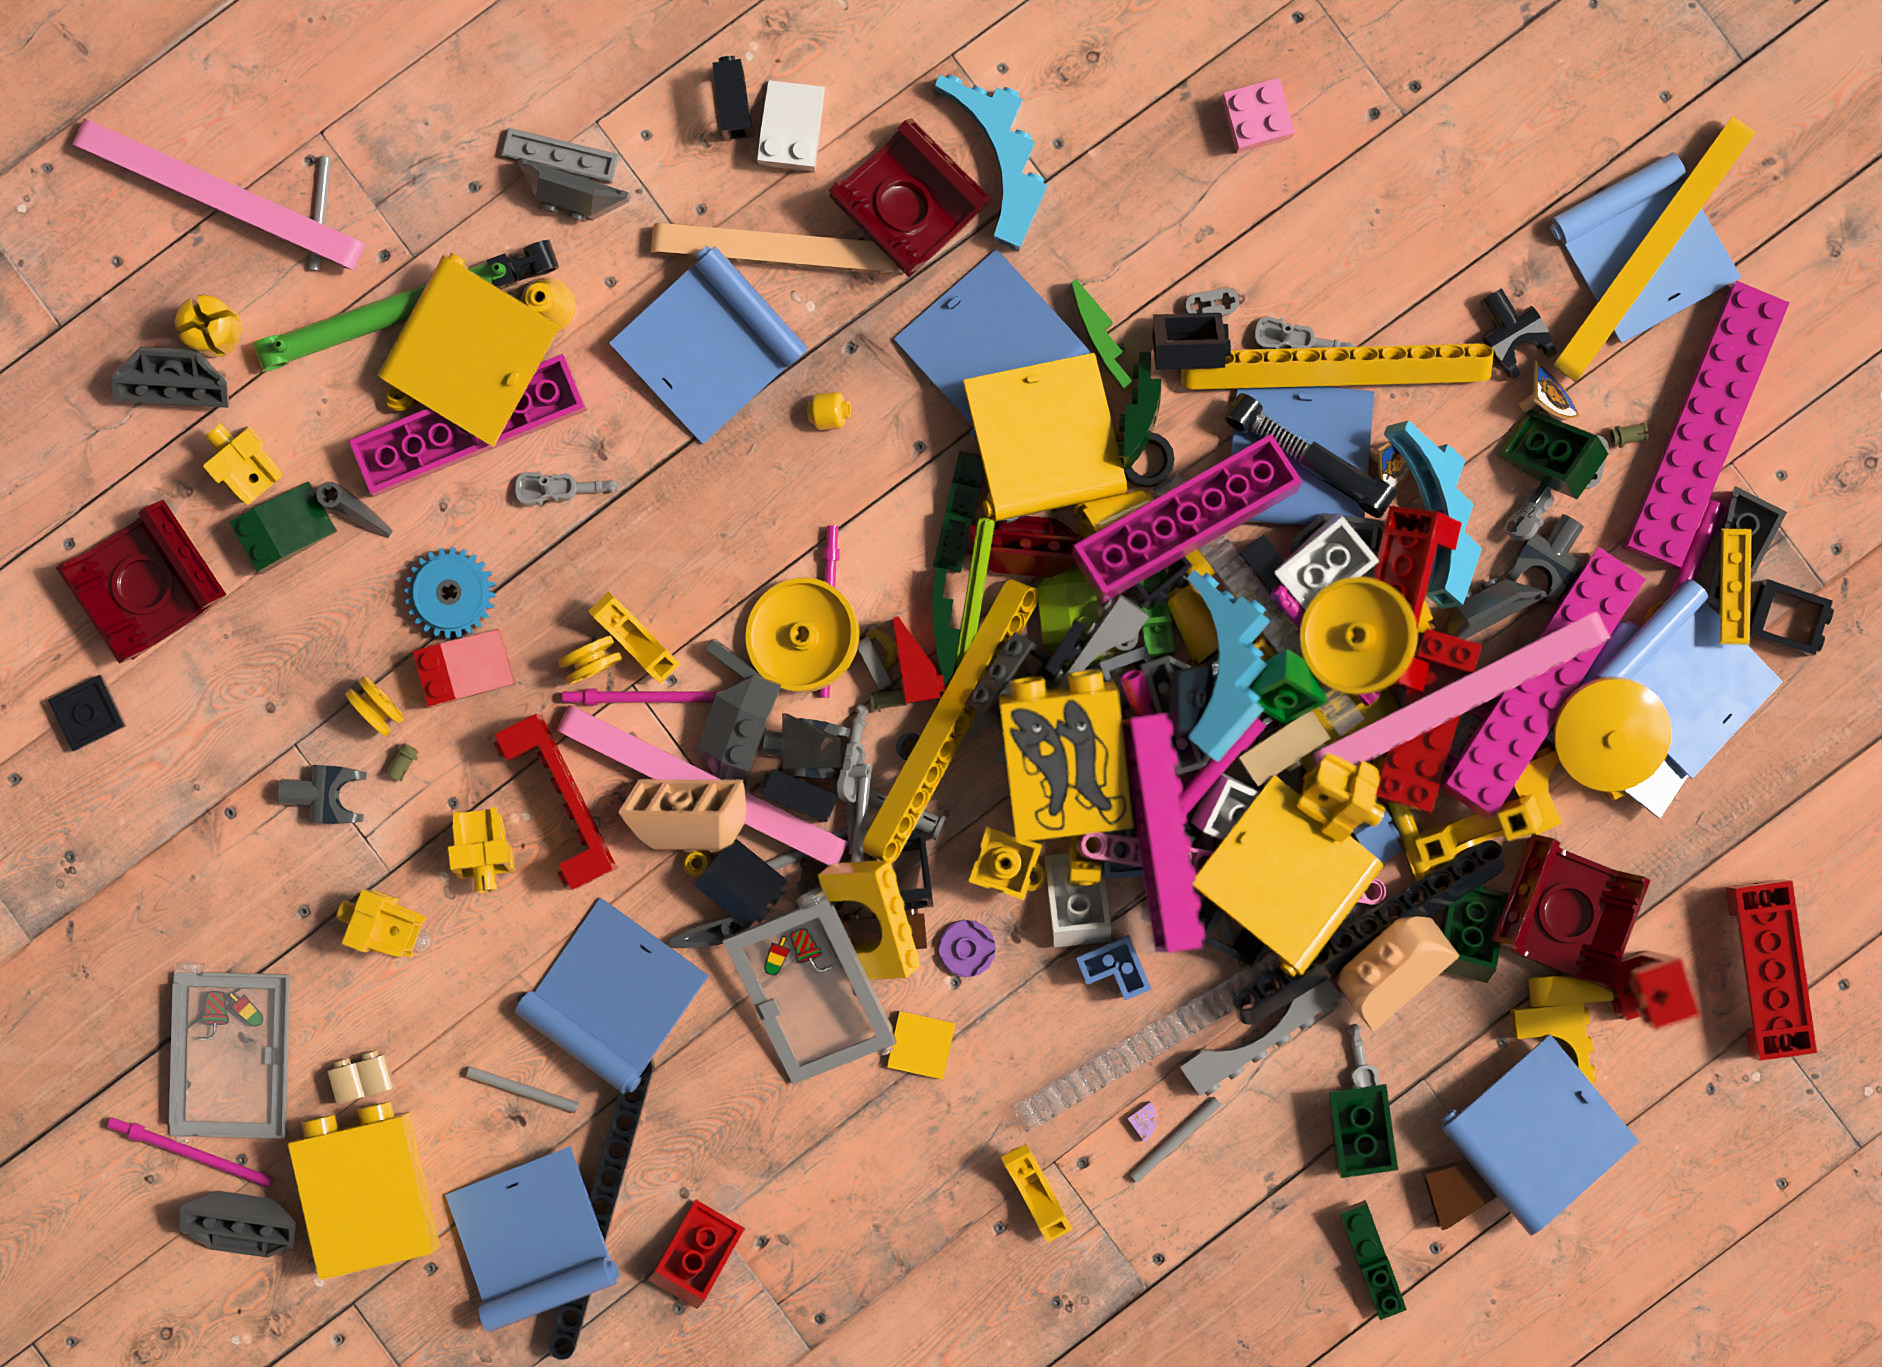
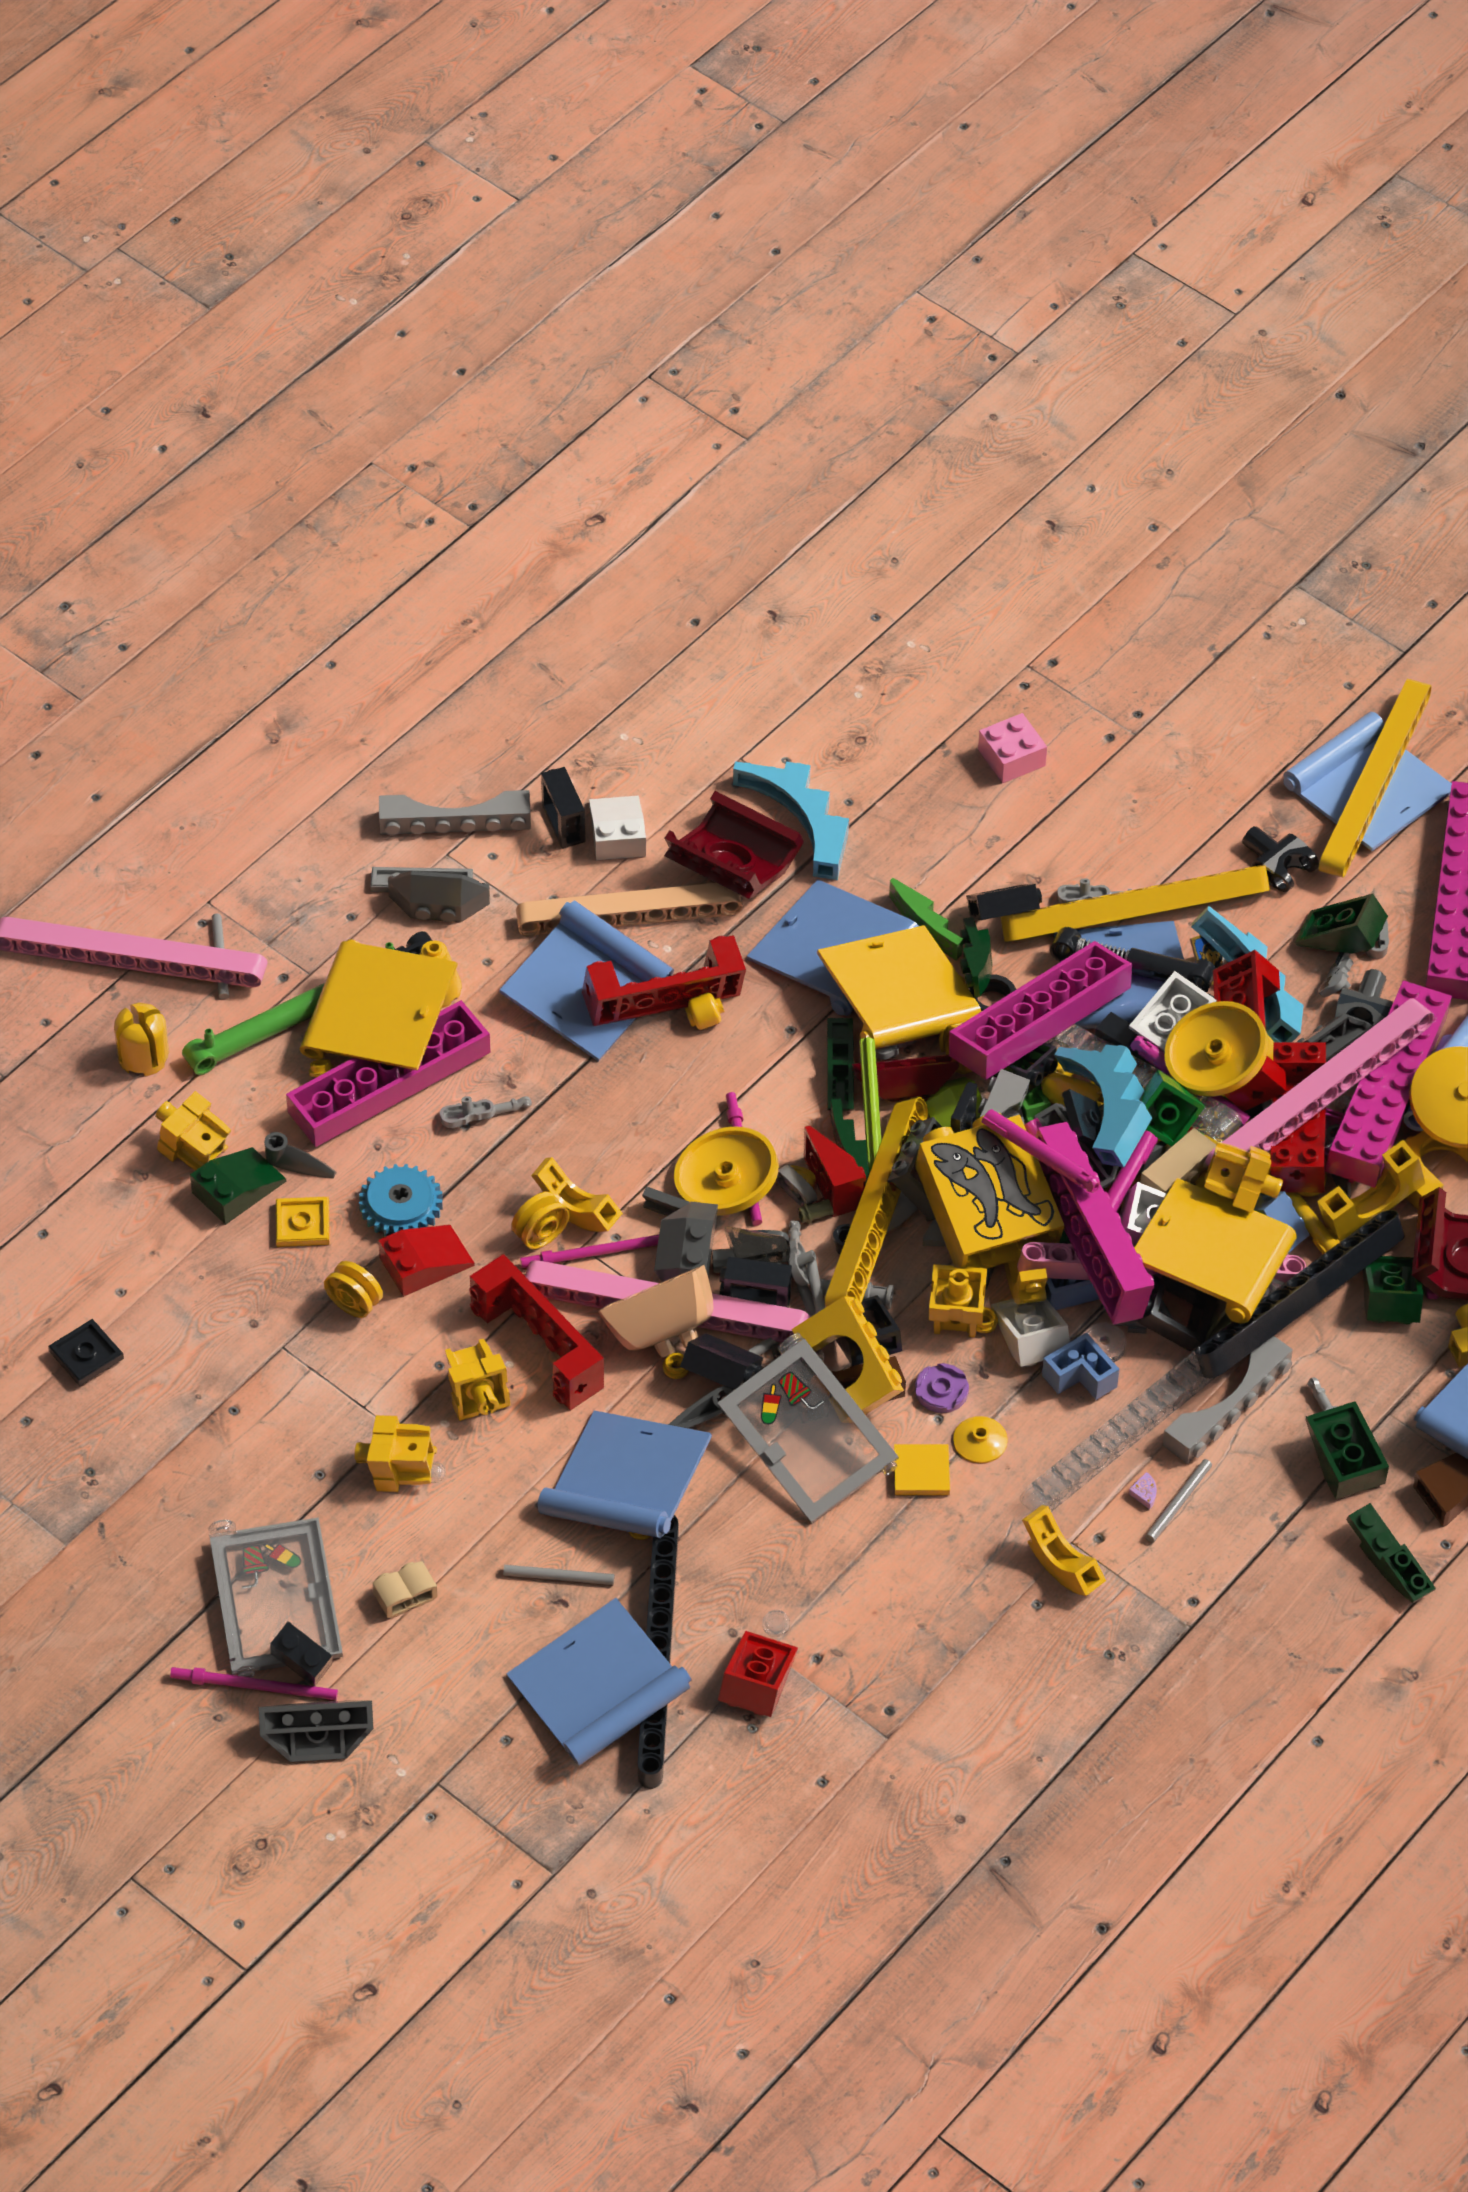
camera: 10 degrees left, 35 degrees down
(142, 583) = (123, 1239): dark red panel -> none
(169, 378) = (115, 1079): dark grey wedge -> none
(234, 1154) = (301, 1654): none -> black brick
(322, 794) = (320, 1374): dark grey connector -> none
(343, 590) = (302, 1221): none -> yellow tile
(363, 1191) = (431, 1673): yellow brick -> none
(402, 761) = (387, 1333): olive pin -> none
(673, 82) = (405, 816): none -> light grey arch
(859, 369) = (610, 1003): none -> red plate
(994, 1003) = (977, 1448): none -> yellow dish
(1097, 715) = (1041, 1151): none -> dark pink piece
(1211, 297) = (1015, 878): light grey beam -> none
(1395, 968) = (1330, 1310): light nougat hips -> none
(1549, 395) = (1316, 894): shield -> none
(1629, 434) = (1401, 910): olive pin -> none

